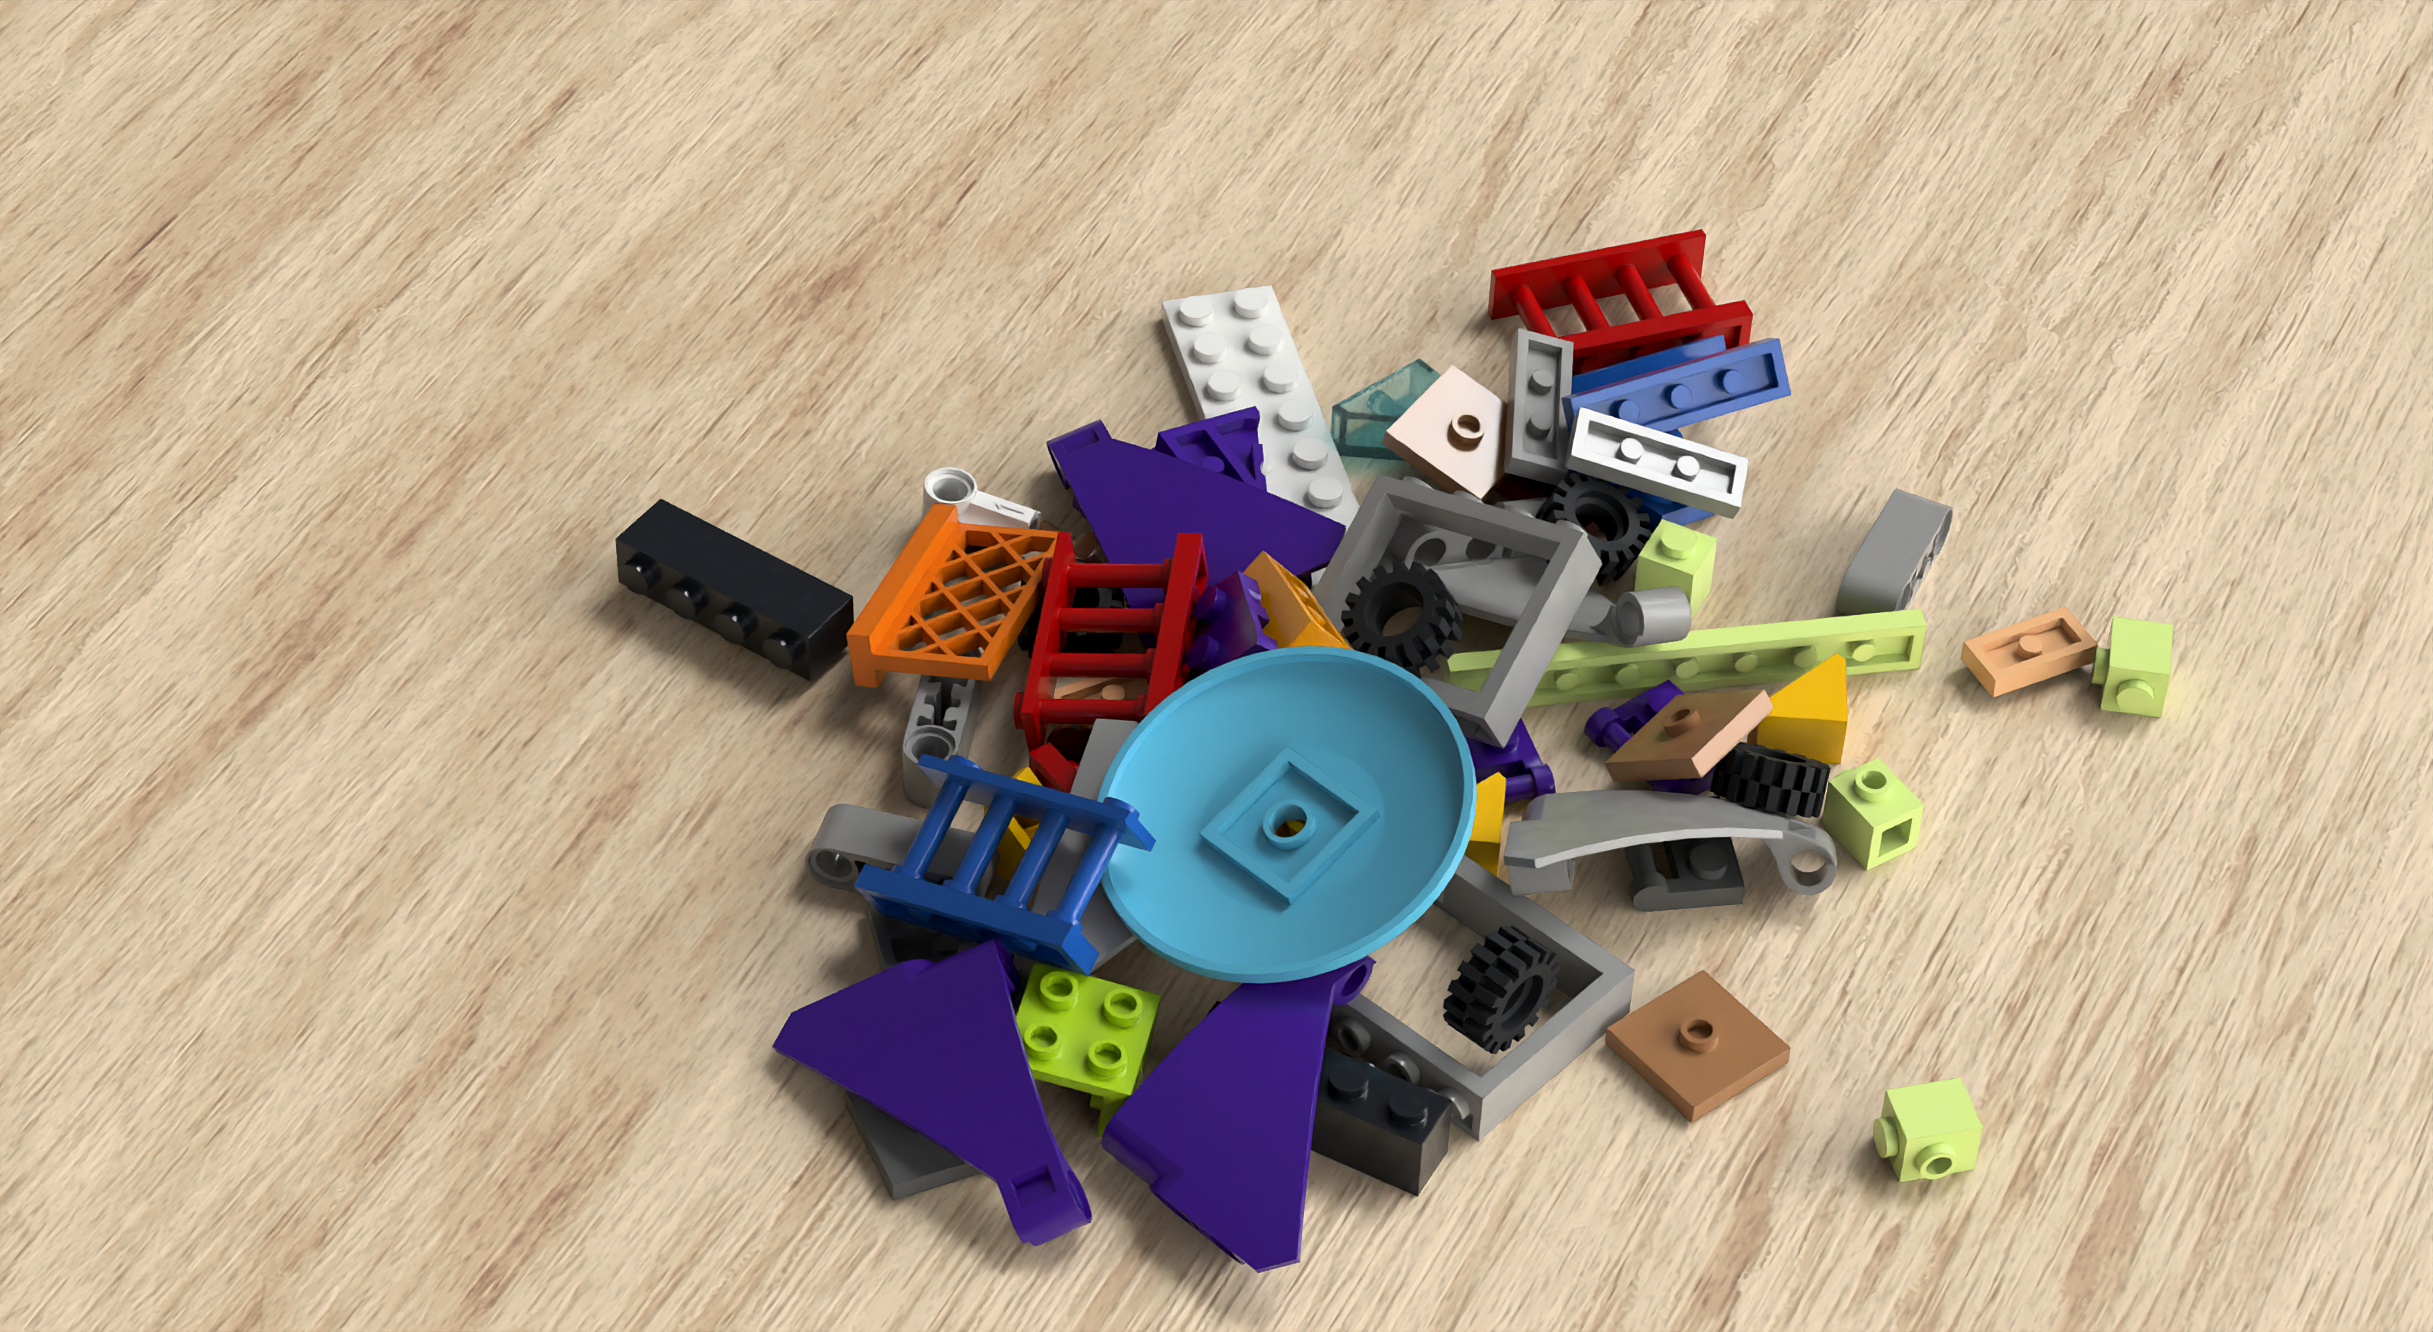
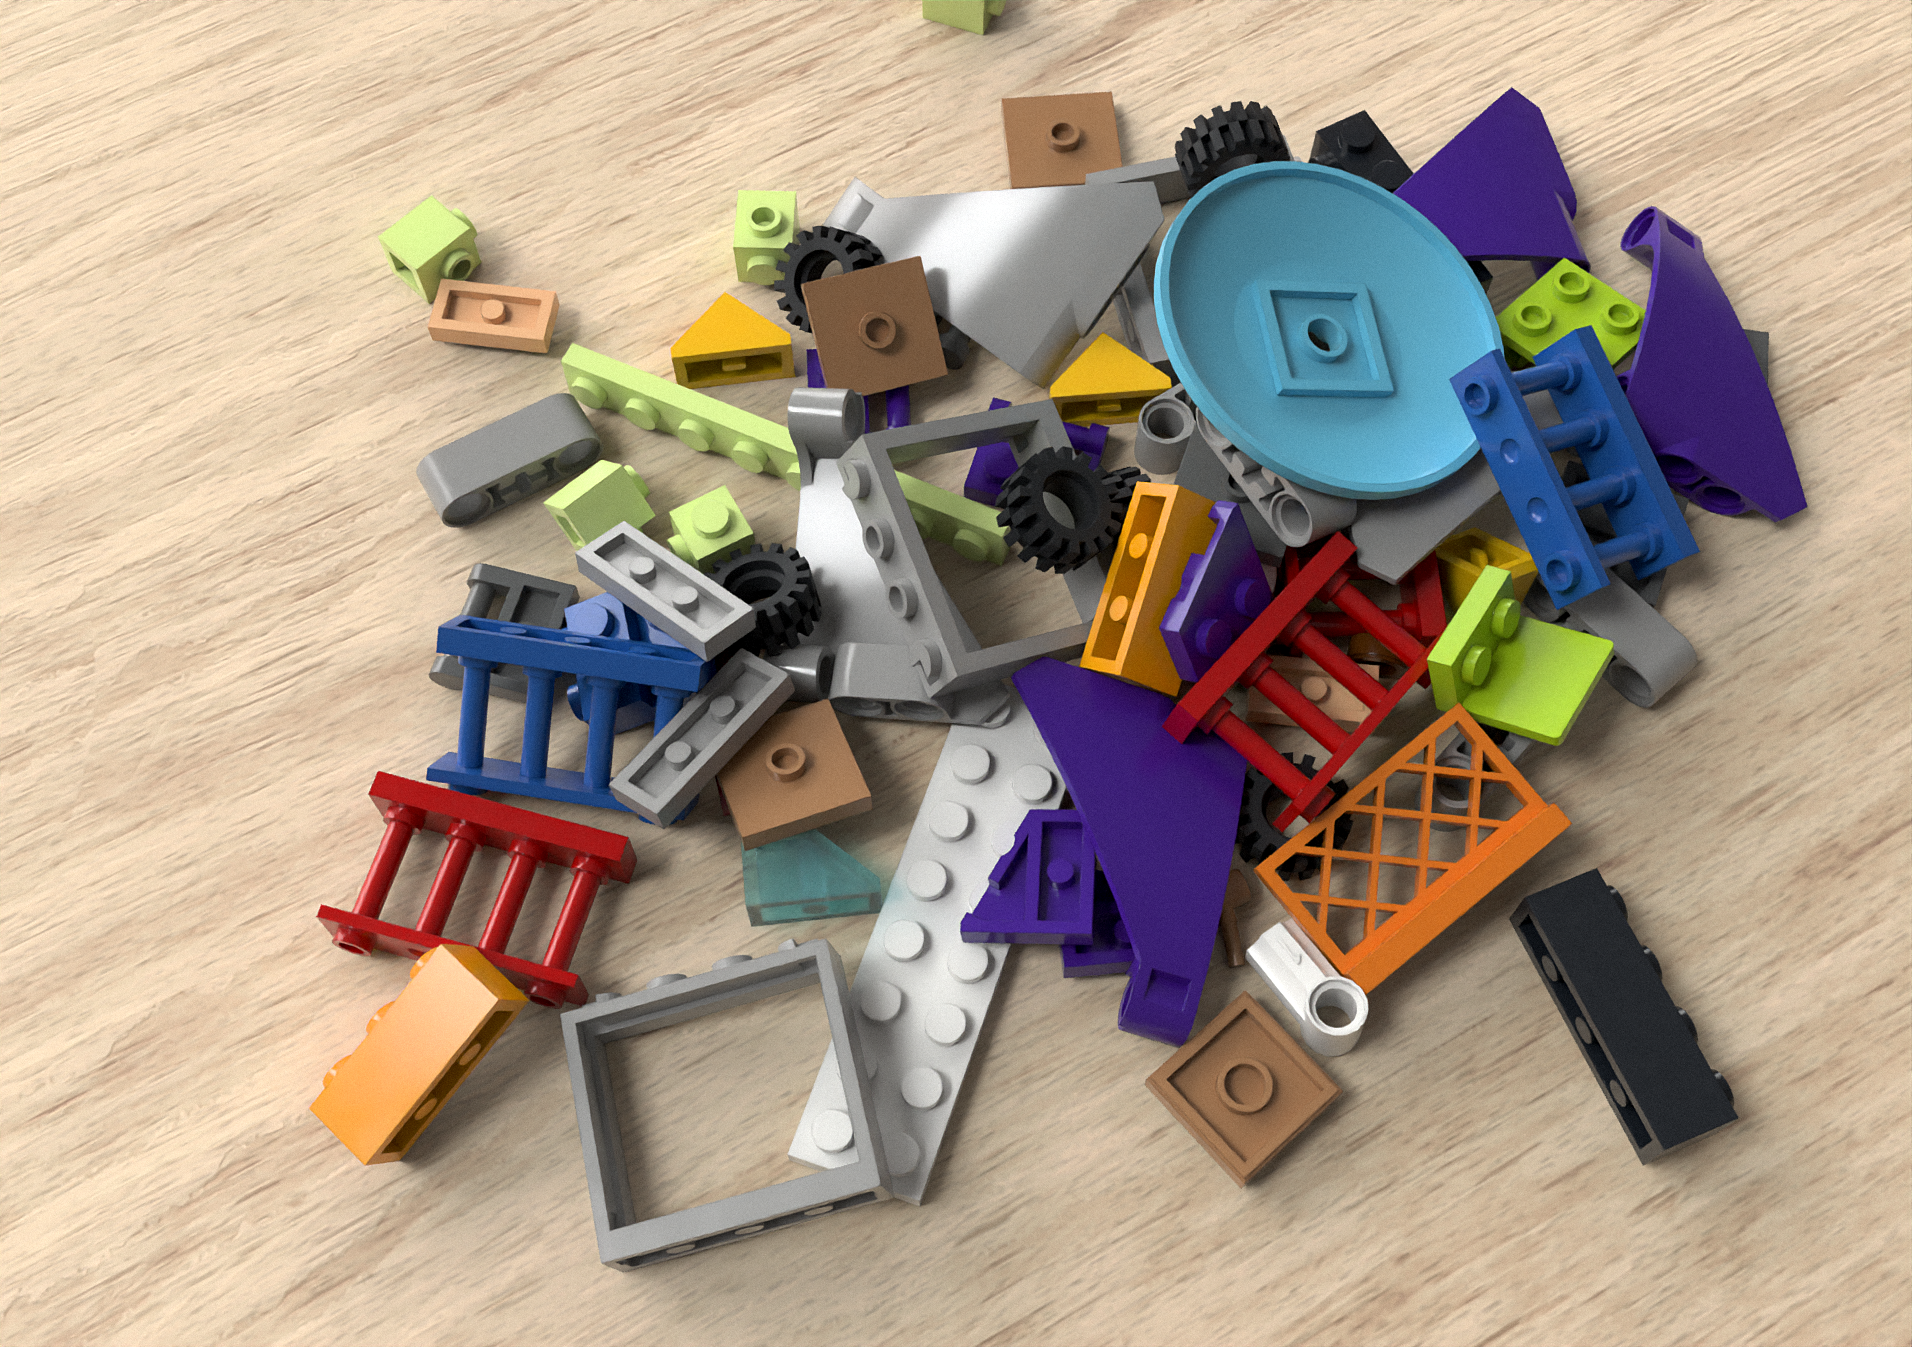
camera: 145 degrees left, 20 degrees up
(958, 715) = (1514, 667): none -> lime bracket
(990, 441) = (1243, 1088): none -> medium nougat plate
(1220, 256) = (676, 999): none -> light grey window
(1558, 199) = (417, 1053): none -> light orange brick
(1769, 477) = (527, 601): none -> dark grey plate
(1783, 545) = (599, 502): none -> yellowish green brick

